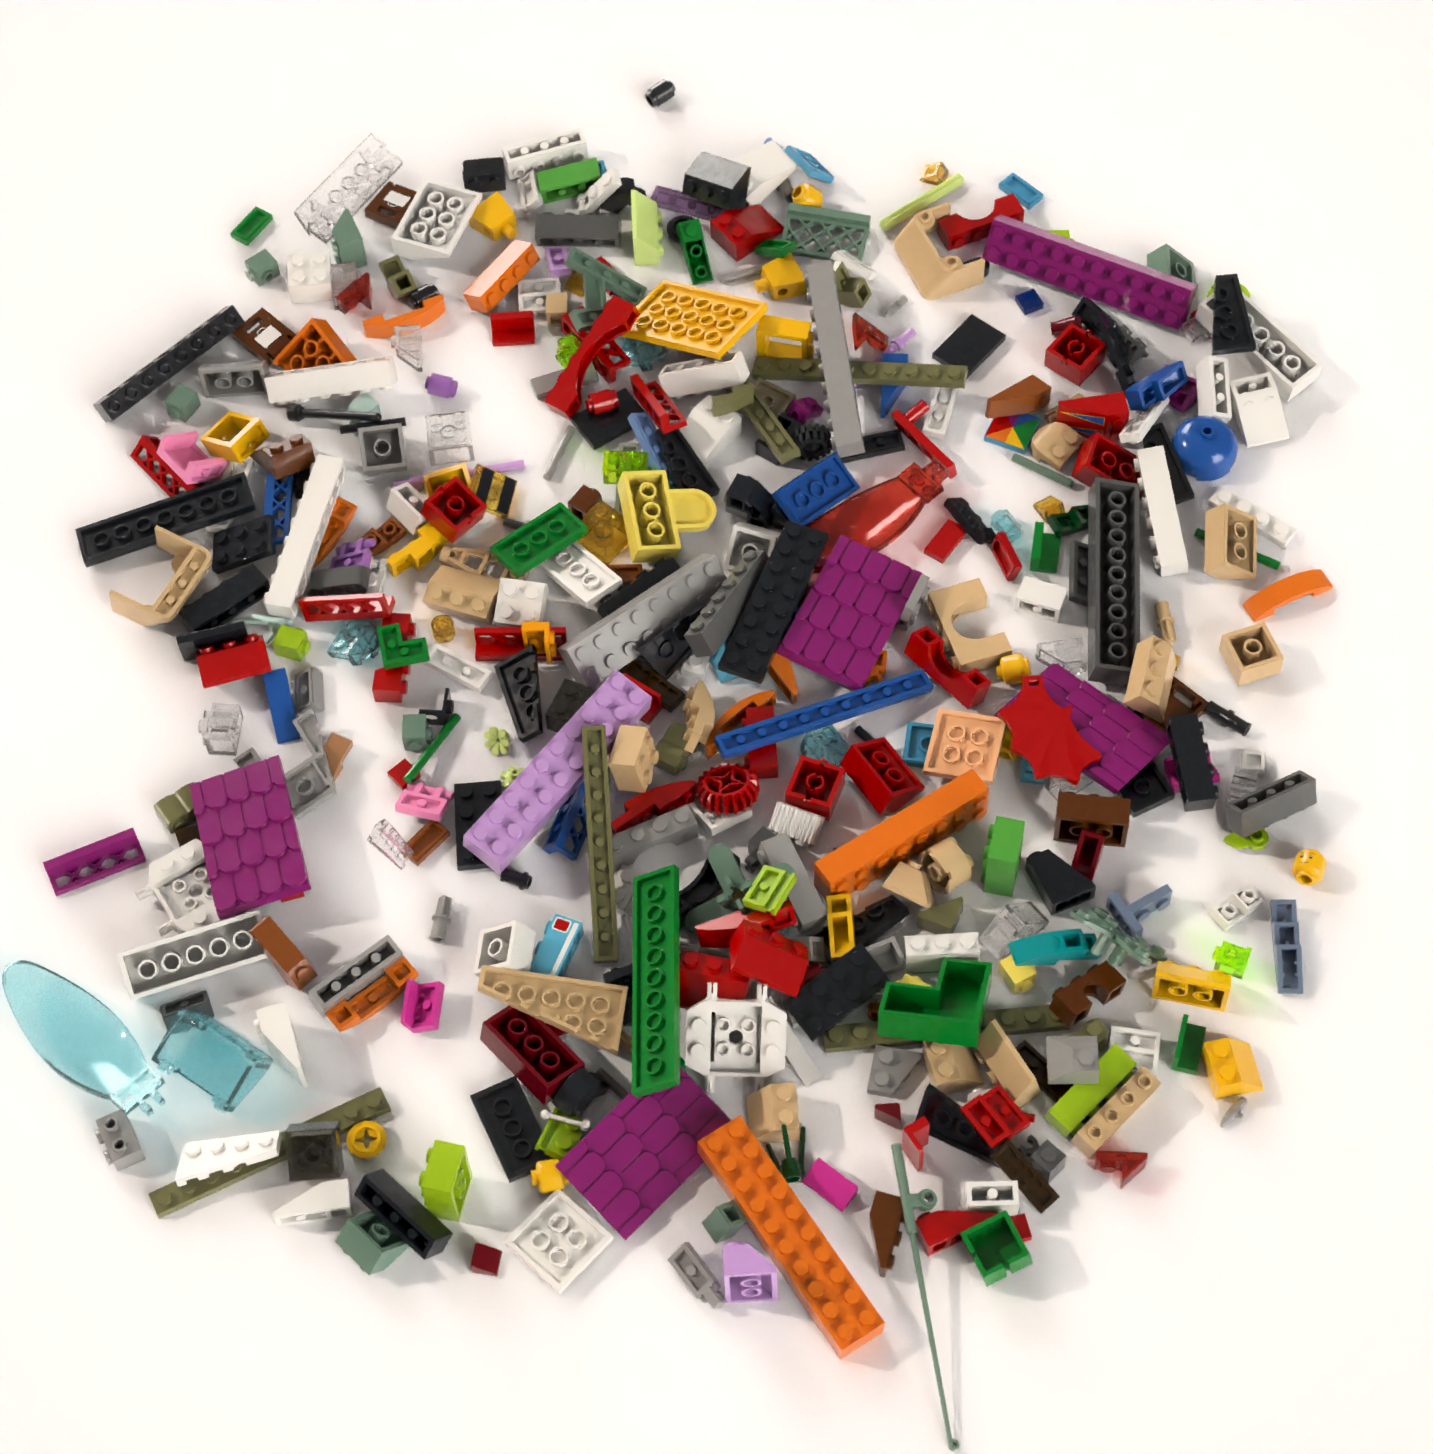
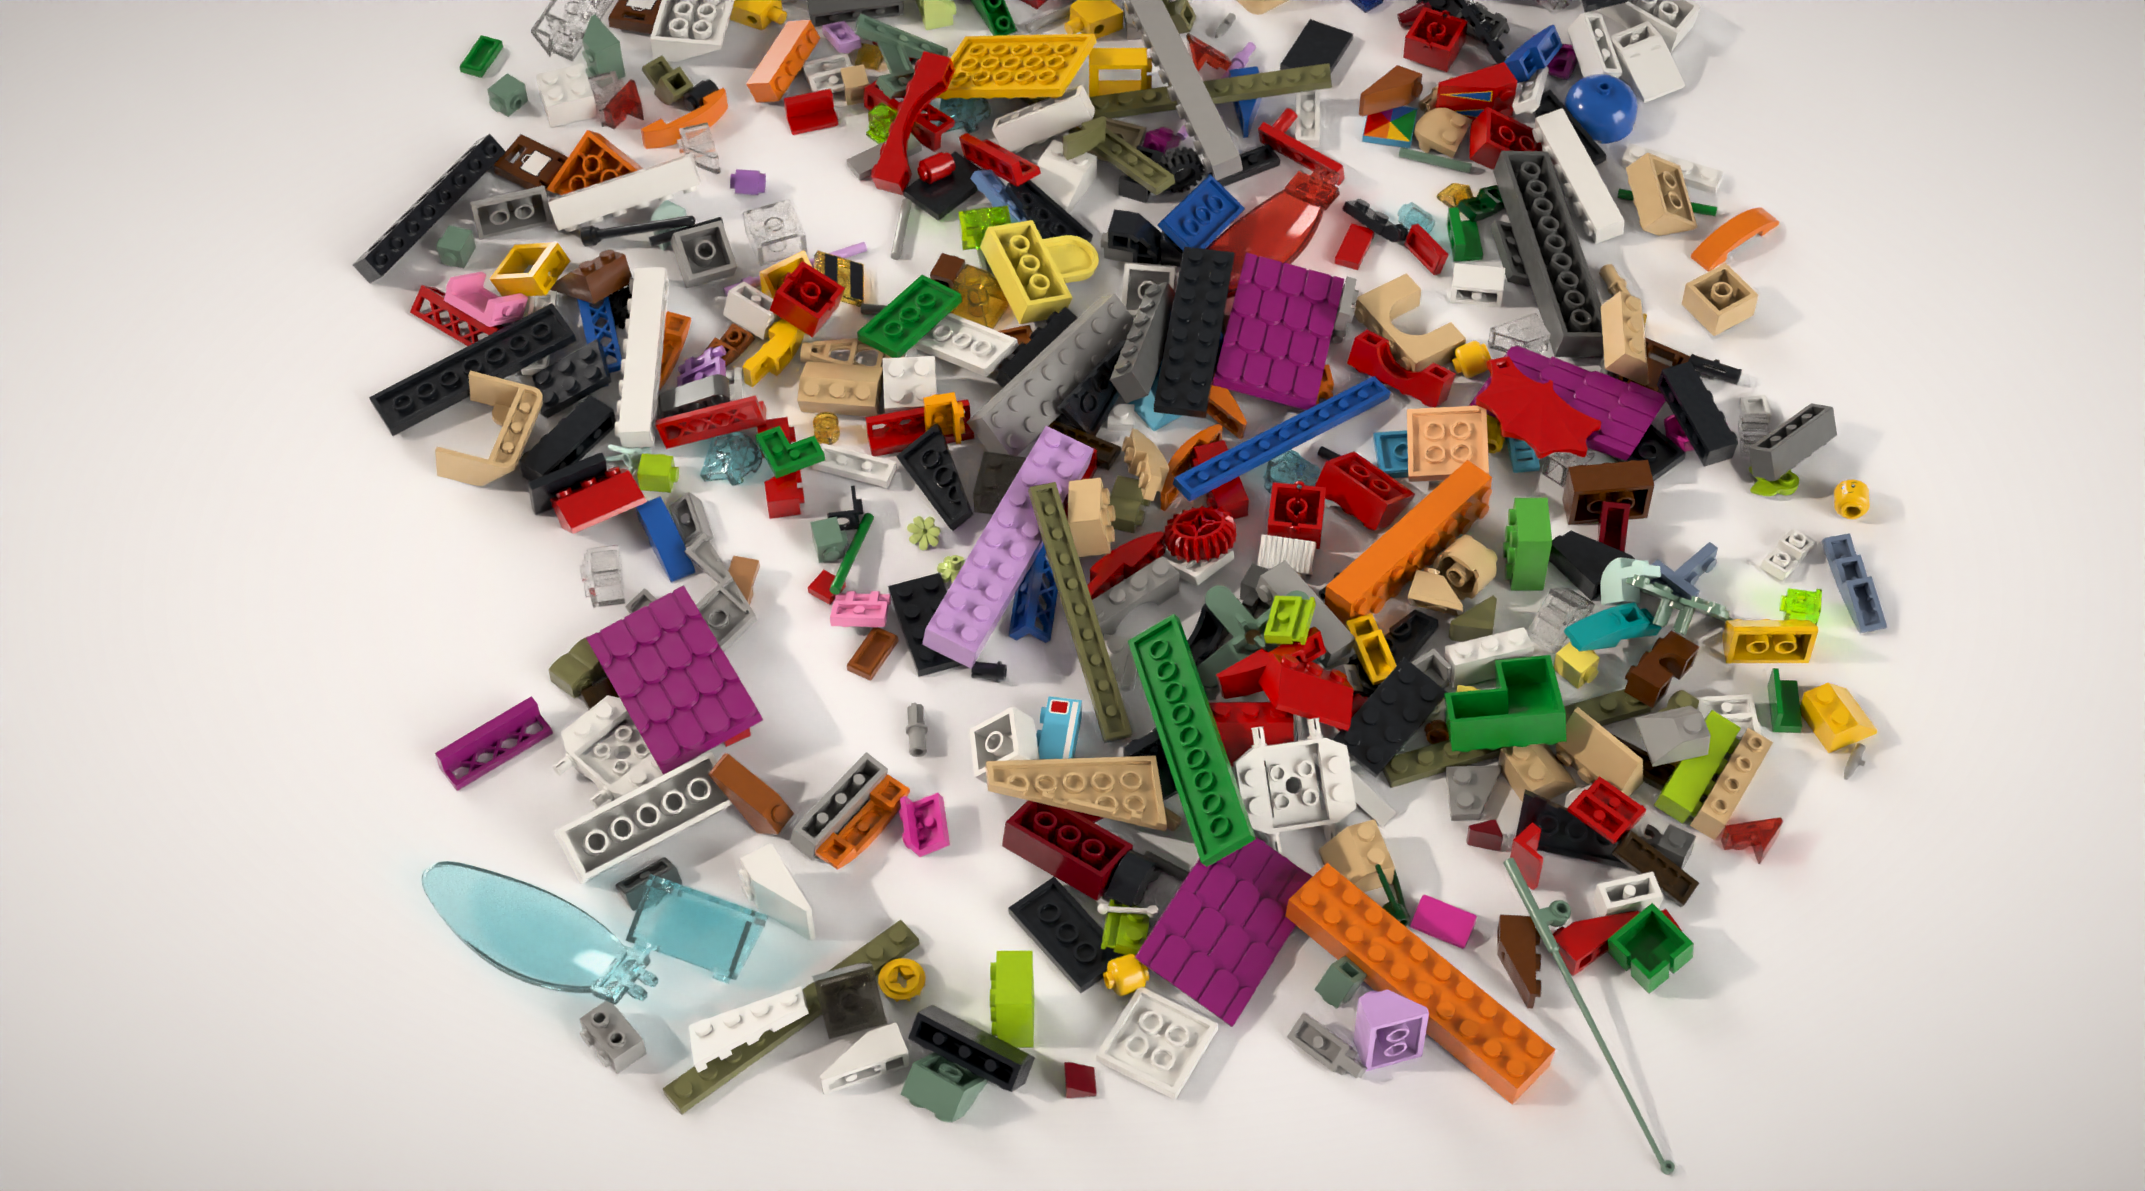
camera: 15 degrees left, 5 degrees down
(381, 844) = (816, 660): clear slope -> none
(1076, 898) = (1613, 581): none -> light aqua brick

